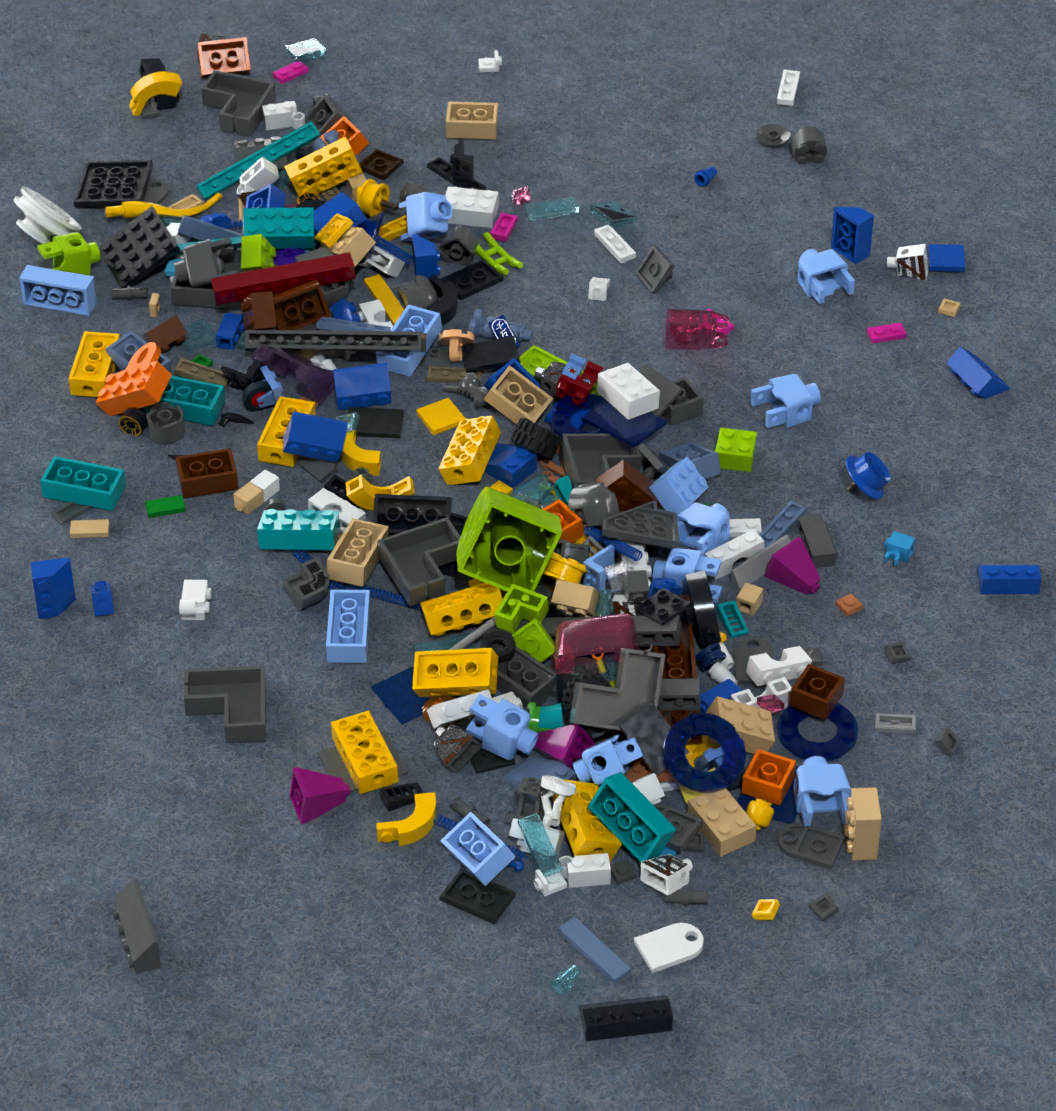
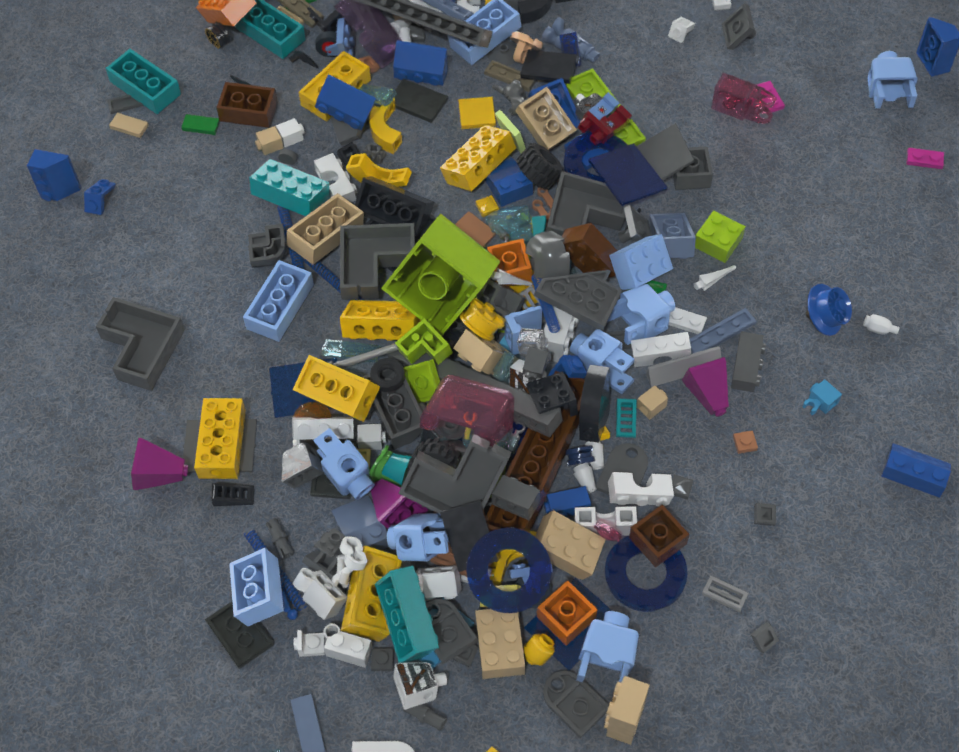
camera: 25 degrees right, 15 degrees up
(165, 423) = (241, 45): dark grey brick -> none
(194, 600) = (168, 226): white hinge -> none
(413, 827) = (226, 533): yellow arch -> none
(478, 410) = (506, 124): none -> yellowish green tile
(540, 845) = (311, 608): clear light blue plate -> none
(567, 535) = (505, 278): none -> white piece
(628, 391) = (644, 146): white brick -> none
(745, 487) = (709, 279): none -> white piece
(789, 398) = (796, 201): light blue piece -> none
(918, 477) = (879, 325): none -> white plant

